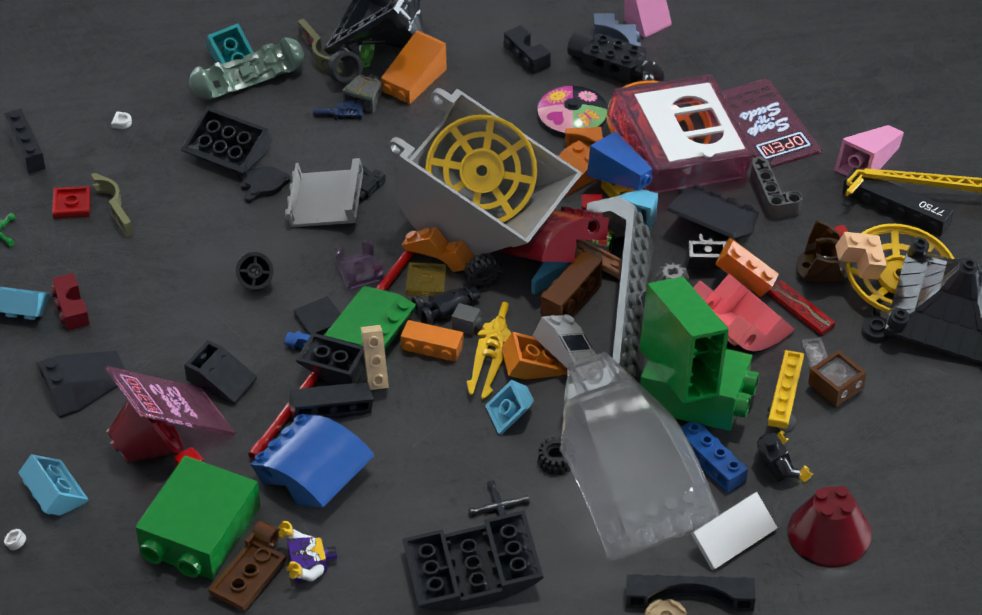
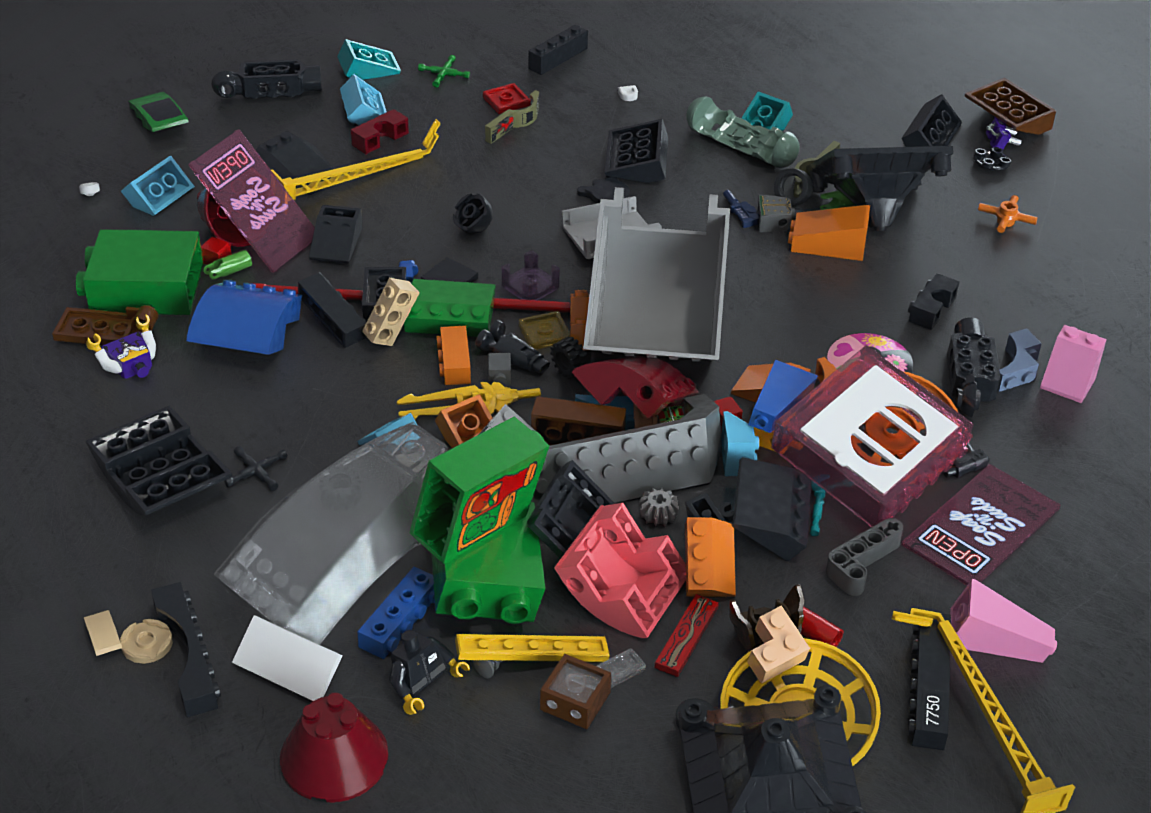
camera: 65 degrees right, 5 degrees down
(127, 352) = (355, 170): none -> yellow piece
(212, 453) = (229, 264): none -> bright green piece
(488, 158) = (678, 281): yellow dish -> none

